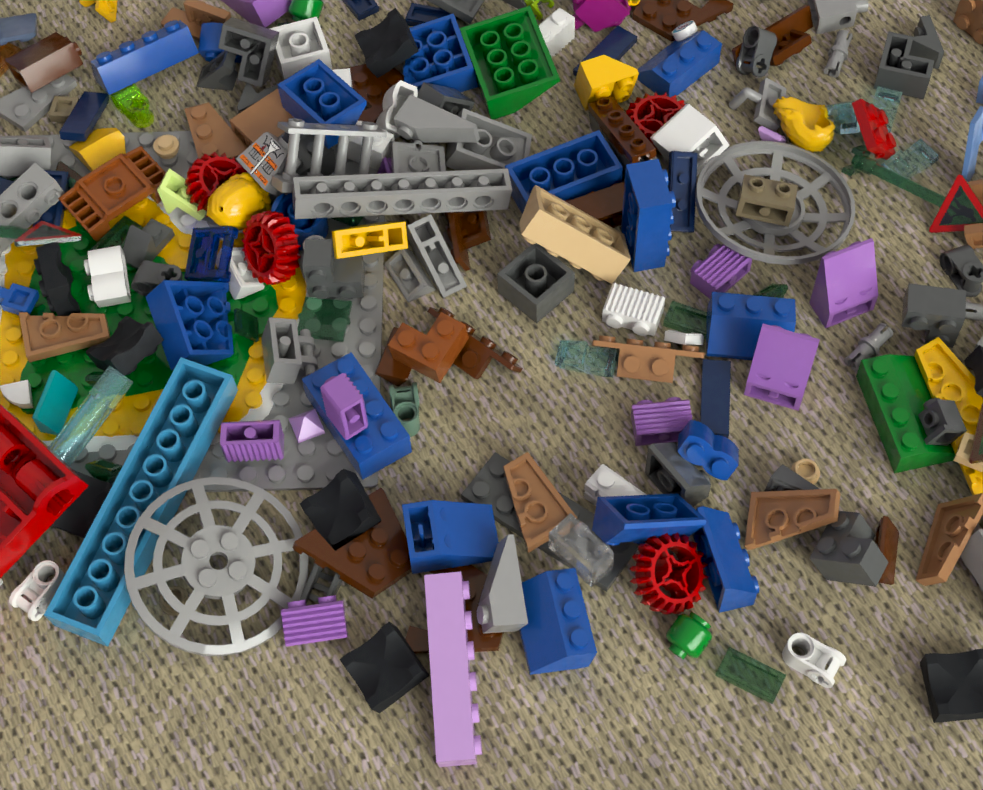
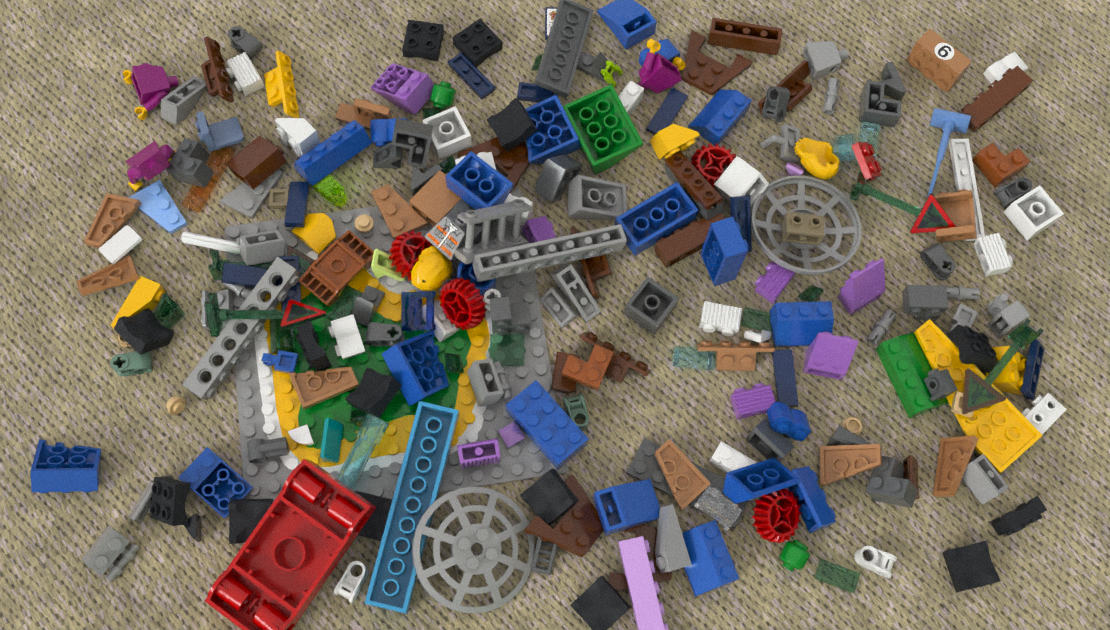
camera: 15 degrees left, 10 degrees up
(22, 267) = (281, 339): none -> clear green slope
(101, 29) = (297, 134): none -> white slope
(103, 469) = (378, 486): clear green slope -> none
(314, 622) = (547, 579): medium lavender brick -> none
(344, 405) = (544, 428): medium lavender brick -> none
(369, 239) = (532, 287): yellow slope -> none
(392, 102) = (529, 177): white brick -> none
(409, 158) = (553, 222): light grey plate -> none
(433, 124) = (558, 192): light grey slope -> none
(574, 235) = (674, 269): tan slope -> none
(685, 30) = (722, 89): white tile -> none
(912, 160) = (891, 178): clear light blue slope -> none

